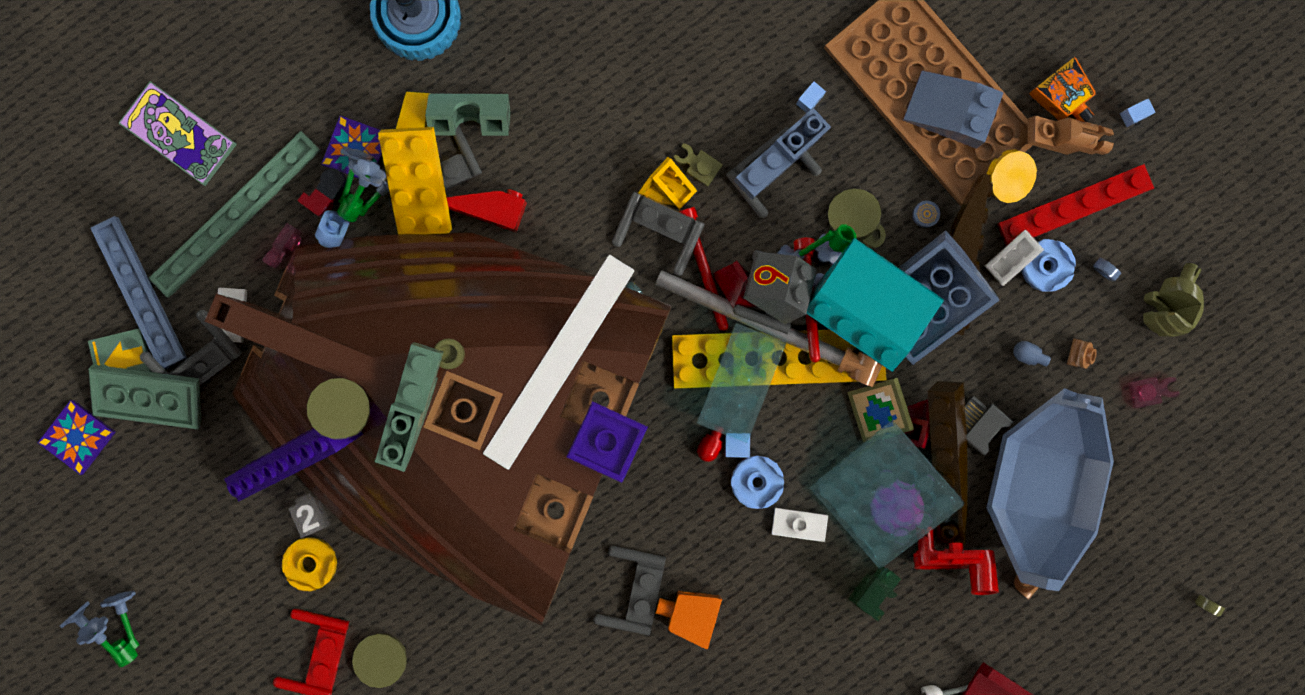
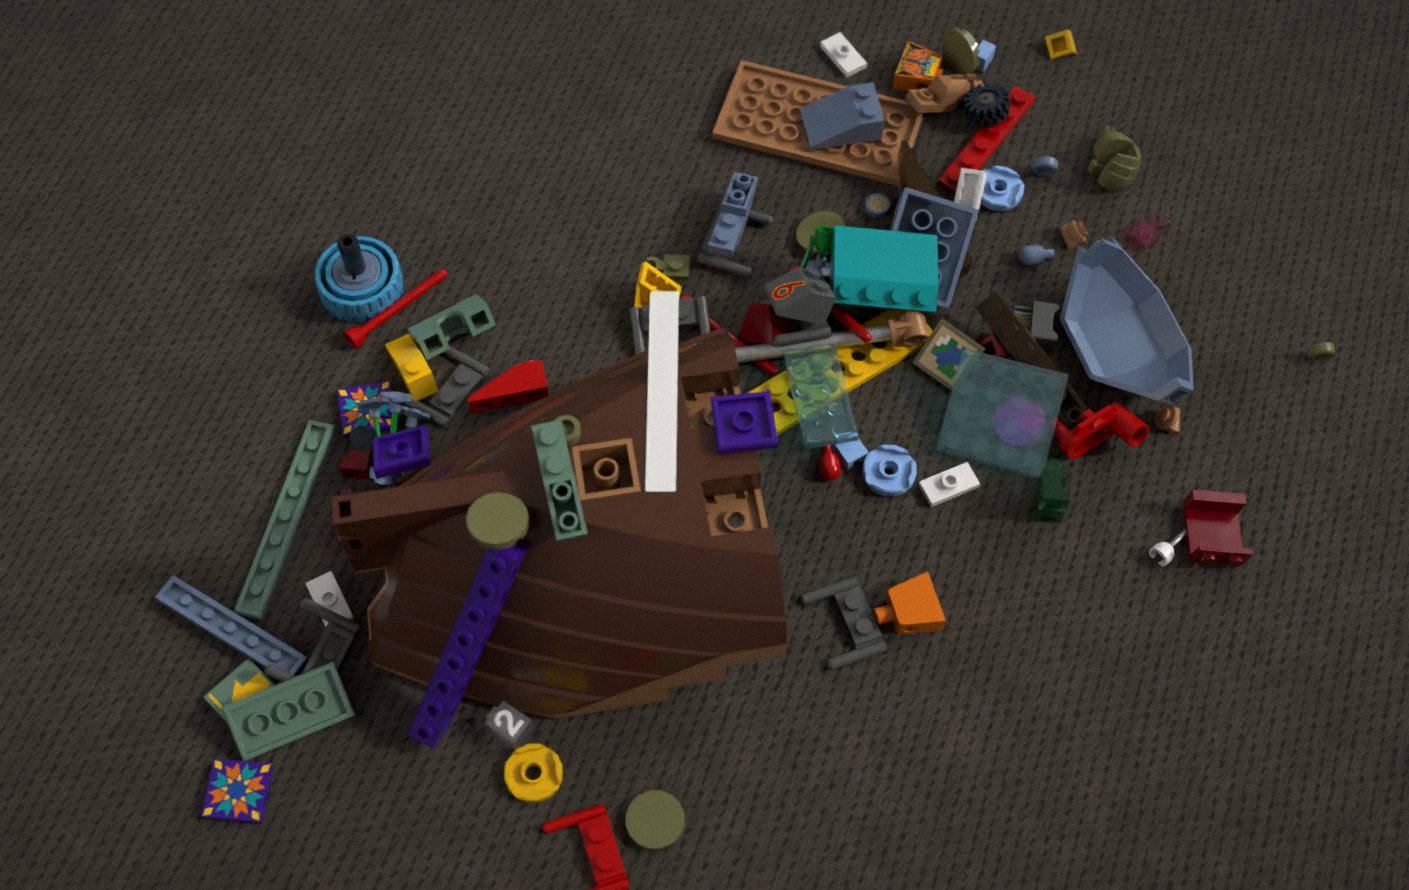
camera: 25 degrees left, 25 degrees down
(177, 133) = (195, 482): tile -> none
(347, 227) = (401, 452): none -> dark purple tile
(386, 69) = (357, 335): none -> red piece
(415, 180) = (439, 390): yellow plate -> none
(810, 97) = (726, 171): light blue piece -> none
(1007, 27) = (843, 54): none -> white plate
(1012, 175) = (925, 140): yellow tile -> none
(1099, 174) = (987, 105): none -> black wheel
(1117, 99) = (960, 50): none -> olive tile
(1221, 144) = (1060, 44): none -> yellow slope

